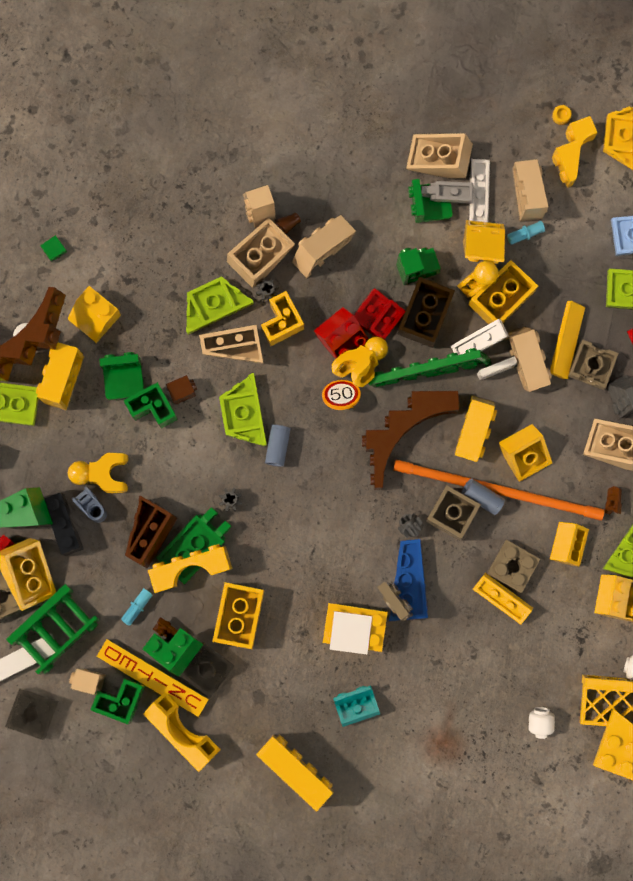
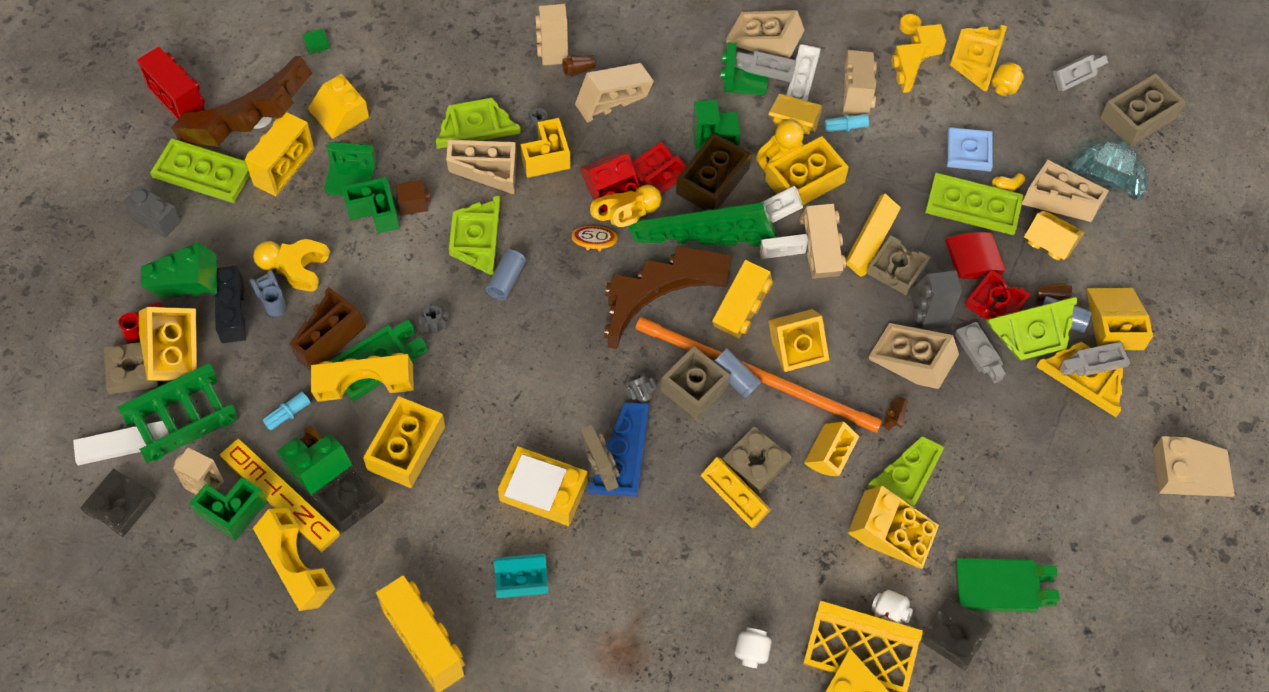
camera: 10 degrees right, 20 degrees down
(260, 252) = (539, 82): tan slope -> none

